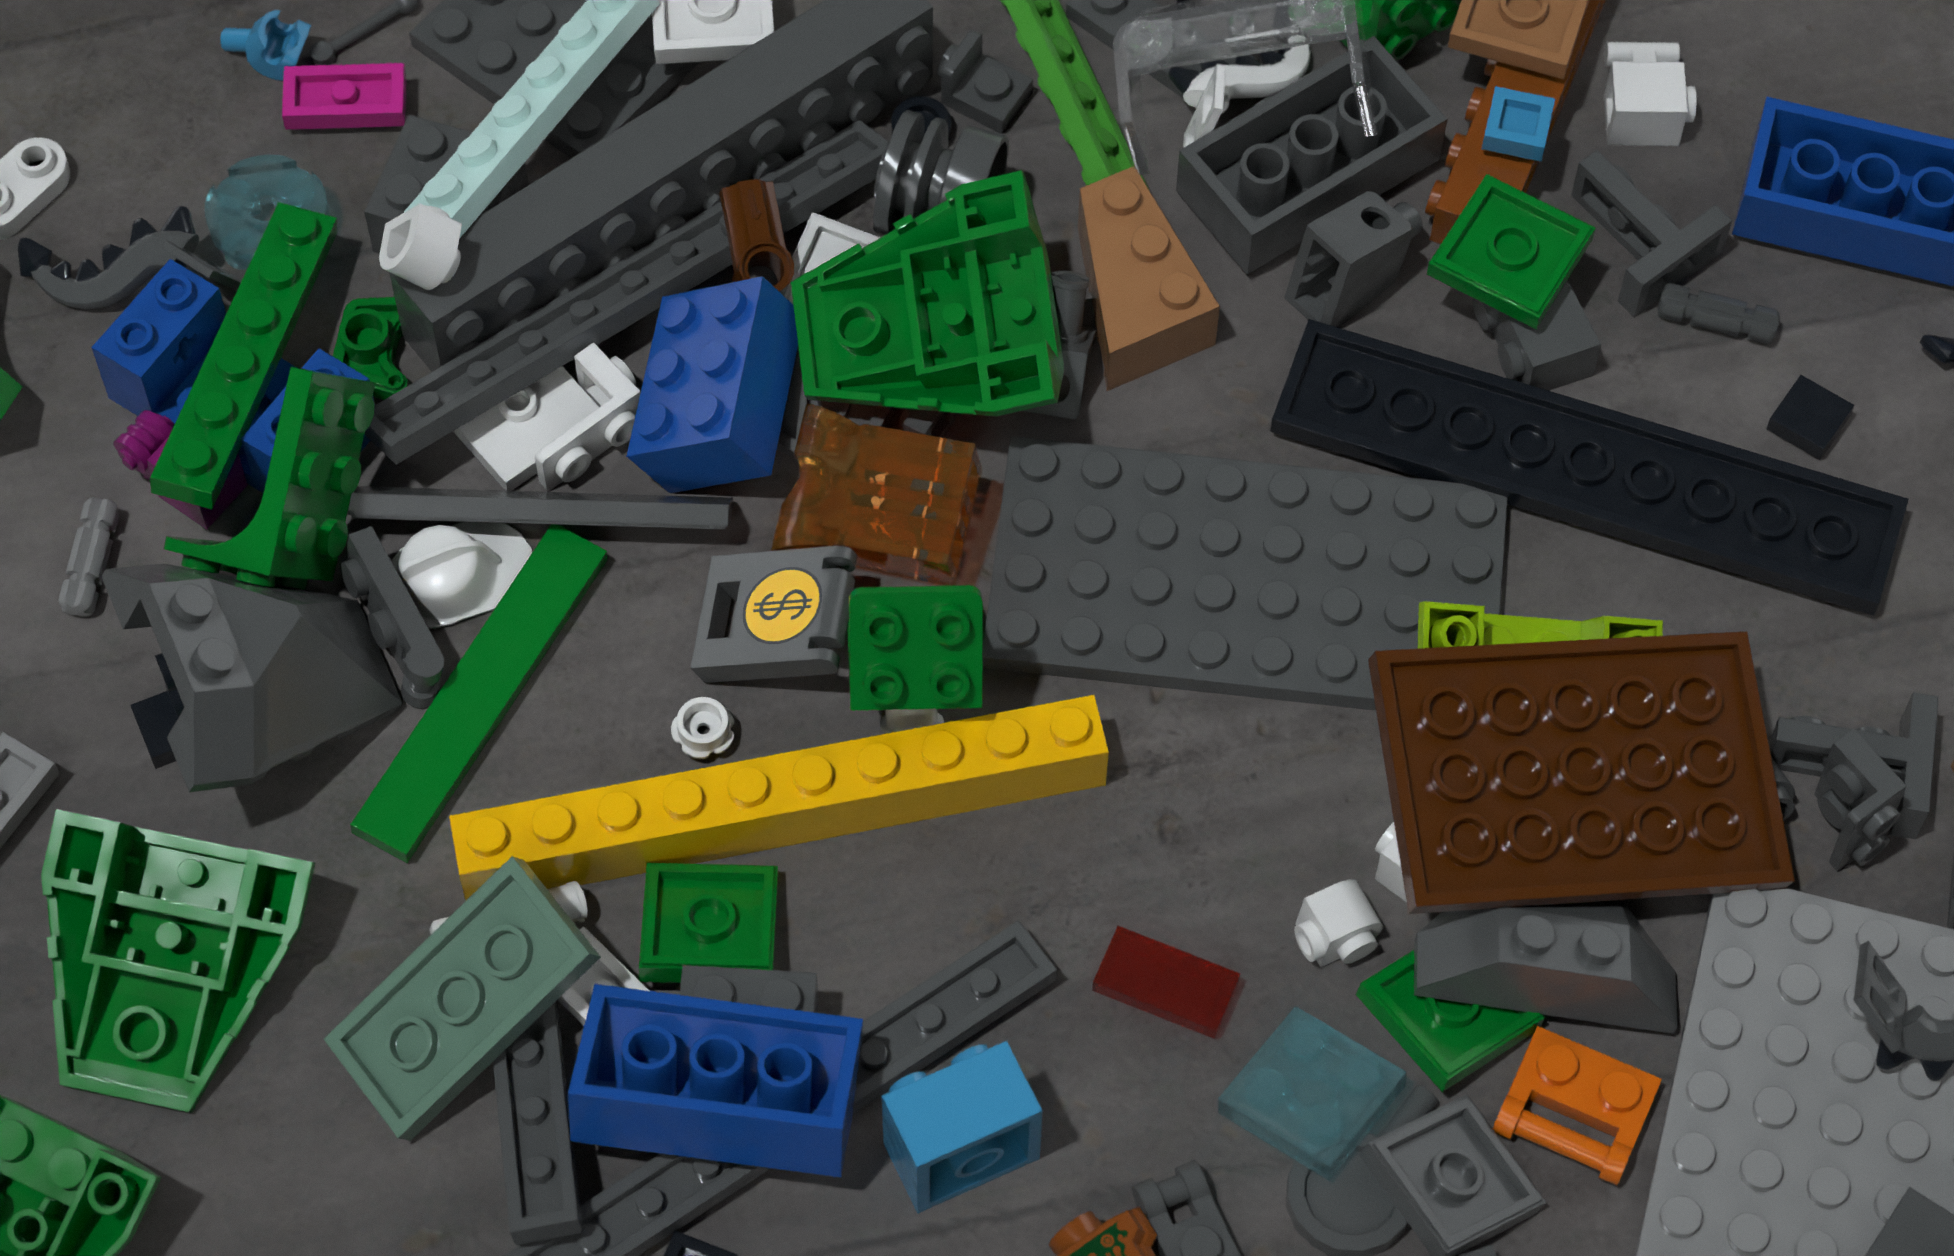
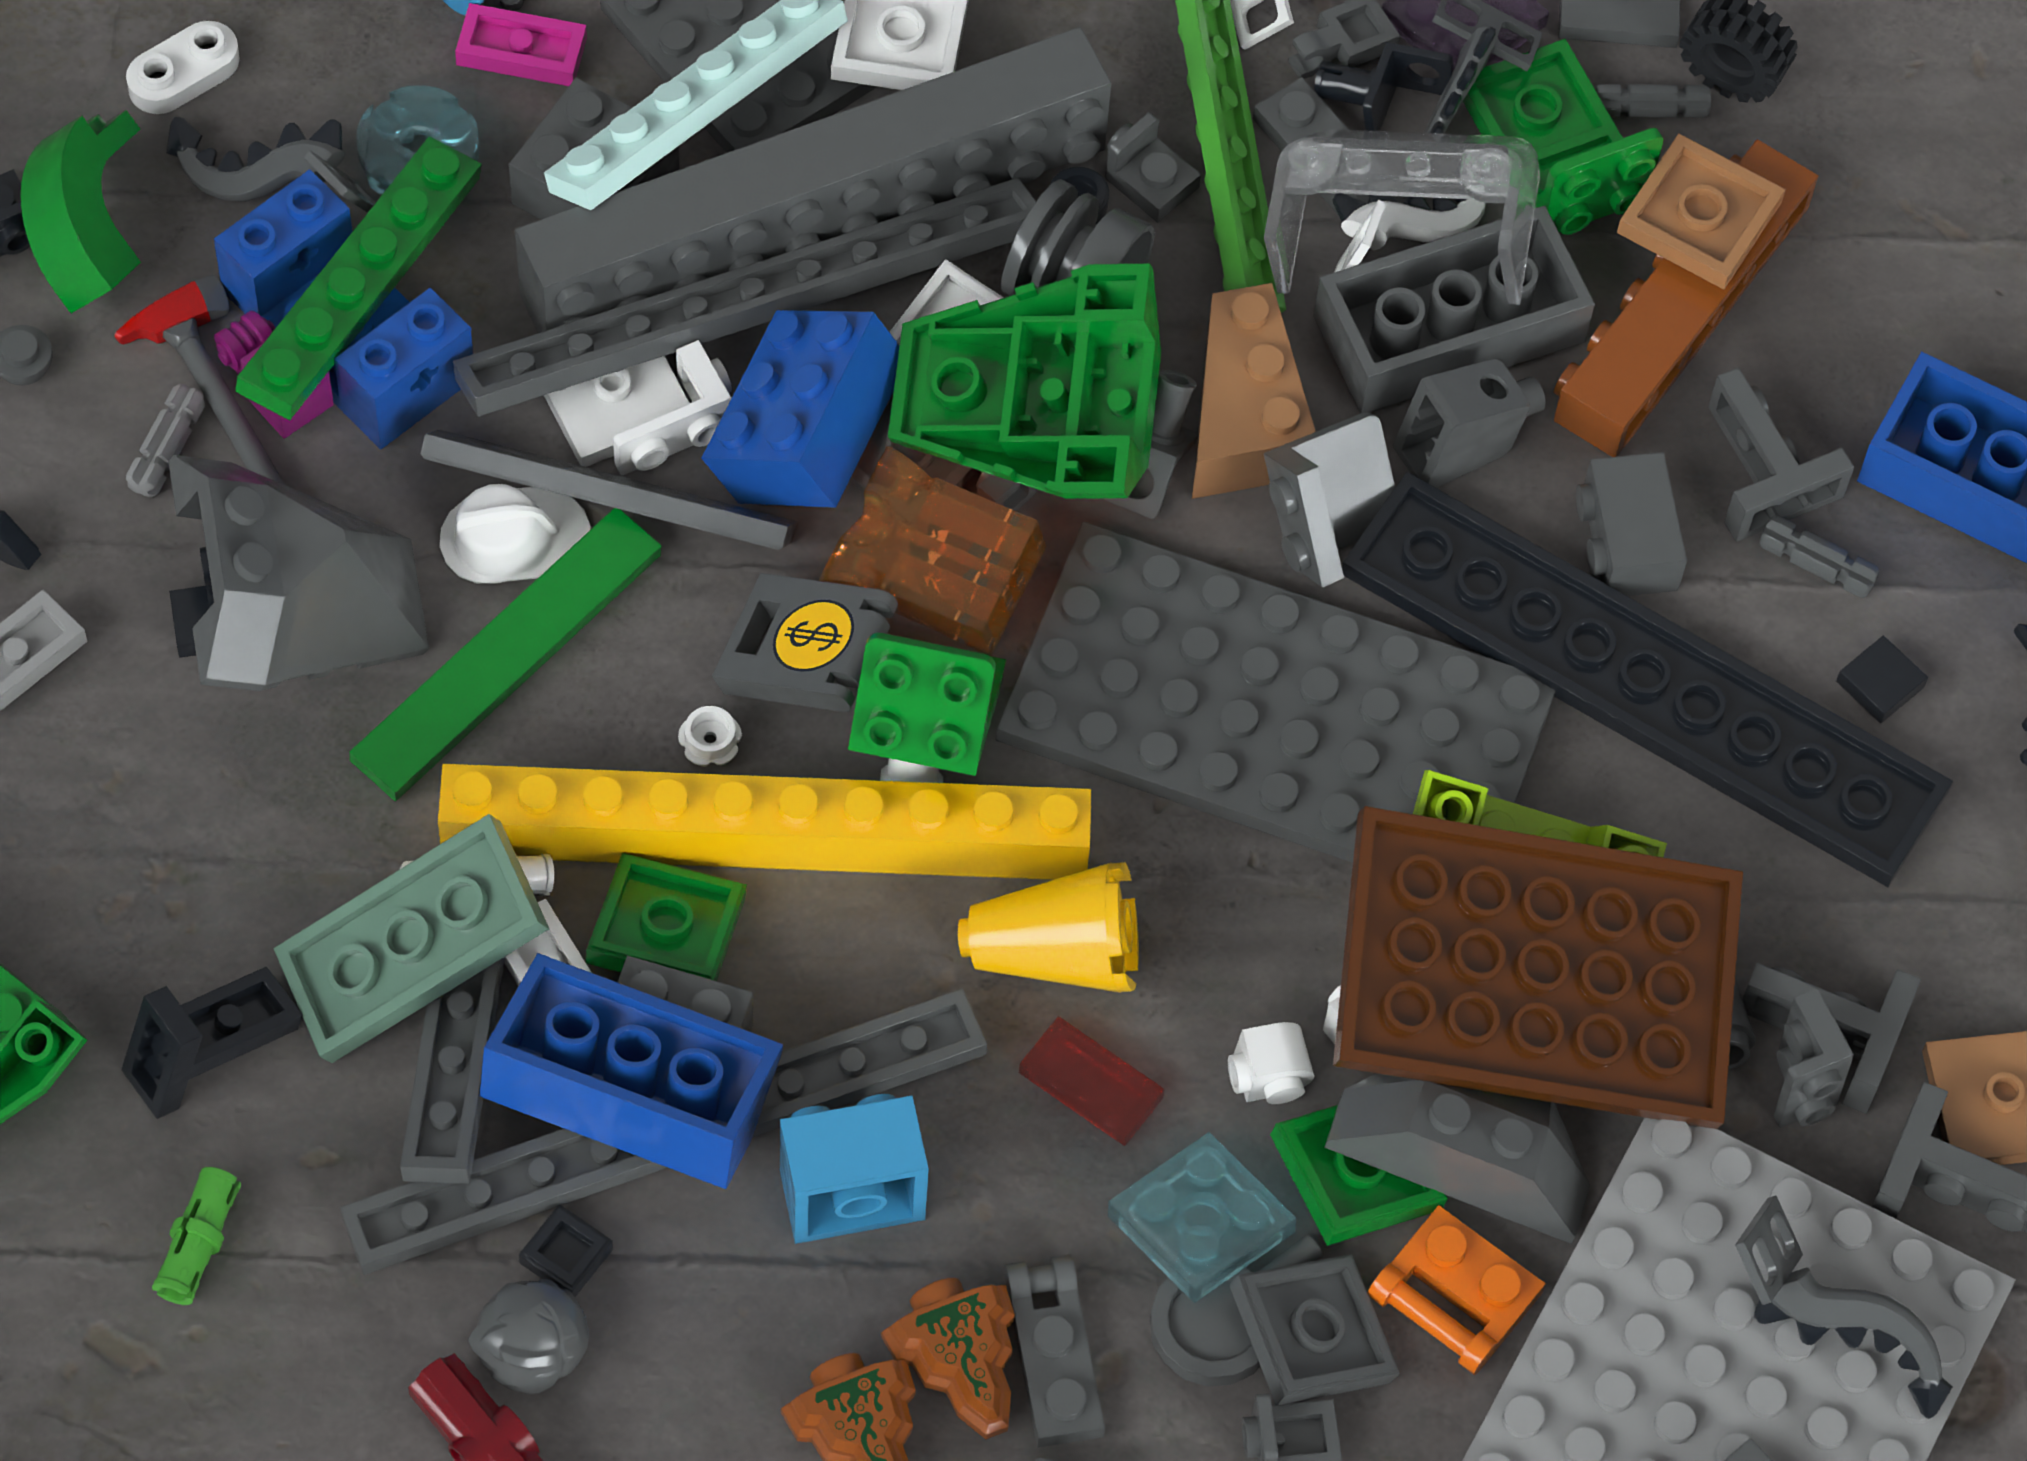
camera: 10 degrees right, 0 degrees up
(71, 437) = (177, 320): none -> dark grey piece
(159, 952) = (139, 830): green wedge -> none
(261, 1153) = (189, 1039): none -> black bracket
(306, 488) = (383, 422): green bracket -> none
(370, 341) = (484, 294): green piece -> none
(393, 616) = (440, 562): dark grey plate -> none
(421, 246) = (550, 211): white plate -> none
(755, 231) = (882, 266): reddish brown piece -> none
(1096, 842) = (1059, 931): none -> yellow cone
(1242, 356) = (1328, 492): none -> bracket
(1511, 251) = (1620, 449): green plate -> none
(1518, 123) = (1664, 324): dark azure plate -> none
(1646, 94) = (1809, 322): white brick -> none

